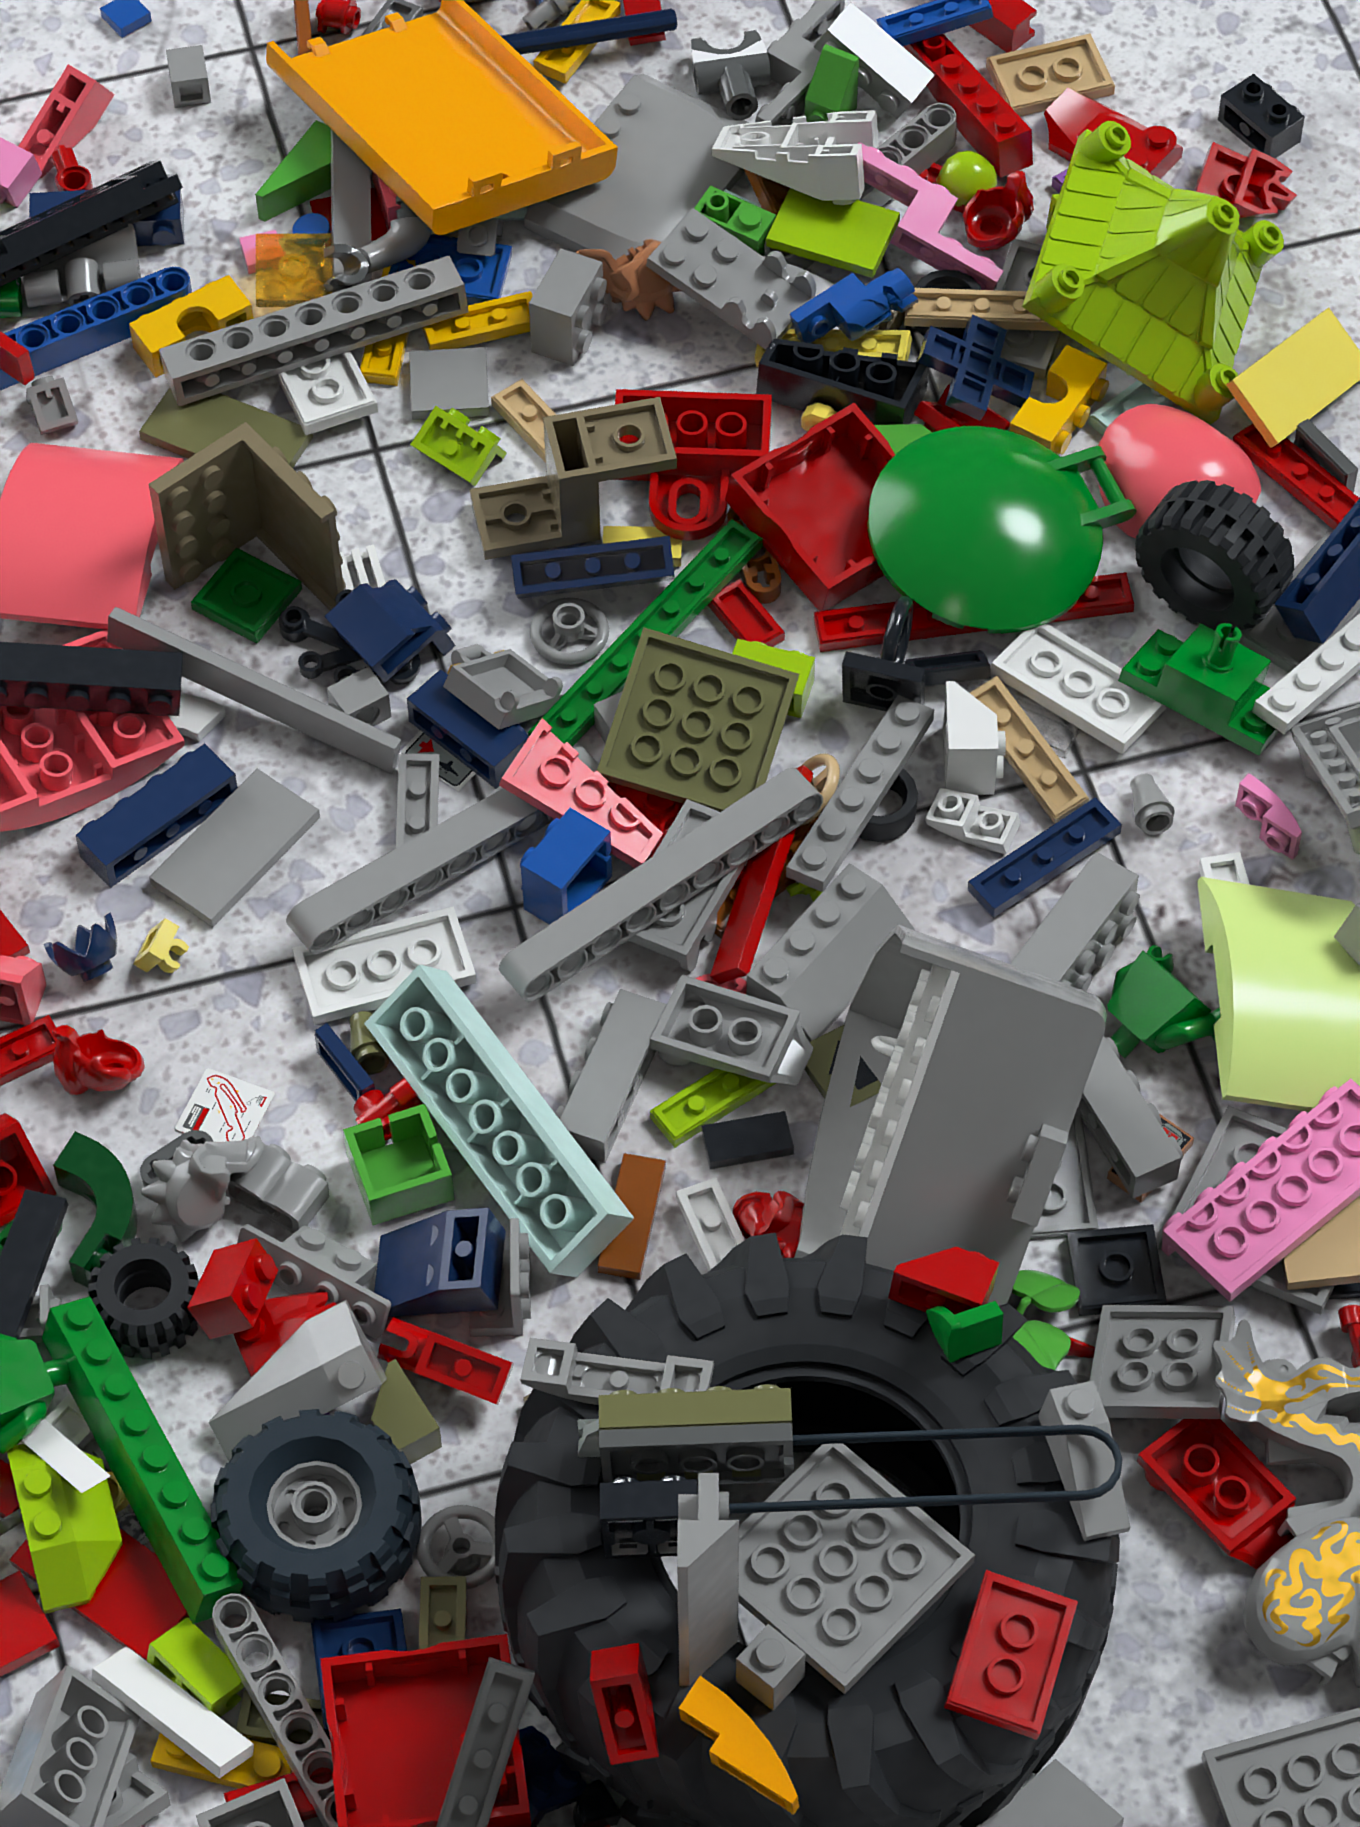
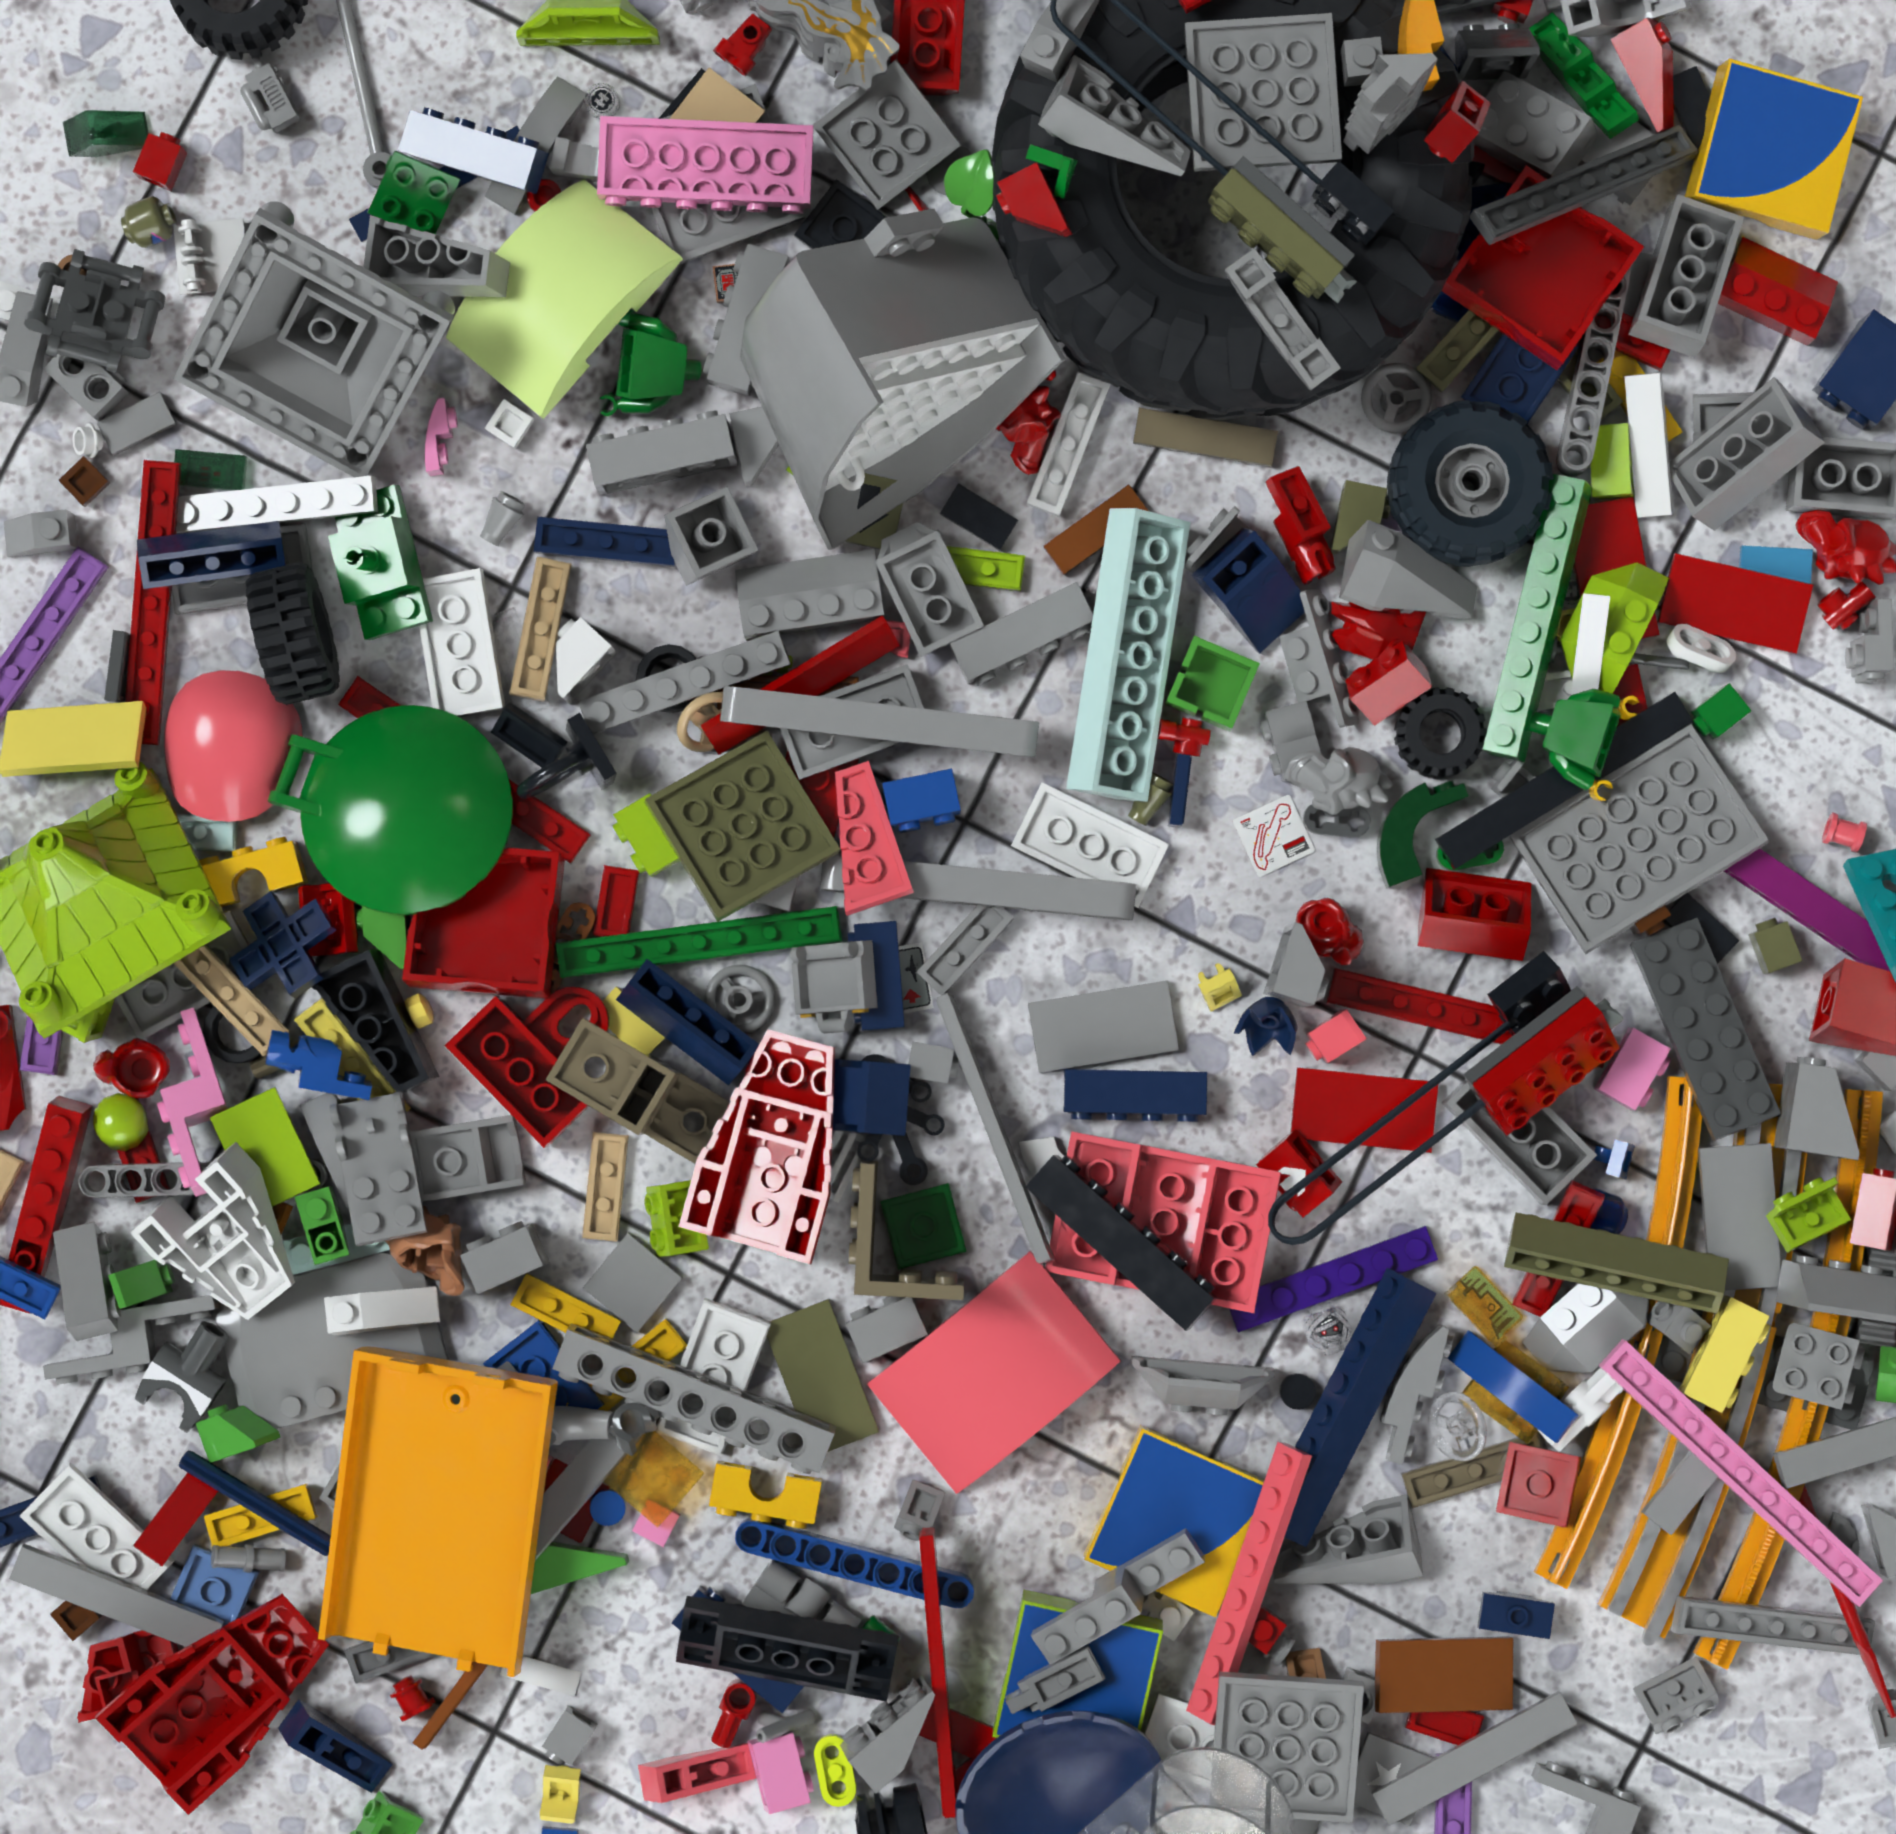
camera: 130 degrees left, 30 degrees up
(20, 191) = (778, 1726): none -> light grey piece
(93, 973) = (1296, 969): none -> light grey slope
(154, 35) = (560, 1794): none -> light yellow bracket
(253, 104) = (547, 1676): none -> white sticker
(427, 525) = (770, 1153): none -> wedge
(629, 199) = (381, 1310): none -> white slope
(654, 59) = (233, 1432): none -> bright green slope
(672, 348) = (468, 1158): none -> light grey piece
(965, 819) = (622, 612): white slope -> none
(965, 908) = (708, 536): none -> light grey slope
(969, 1393) = (1096, 118): none -> light grey wedge

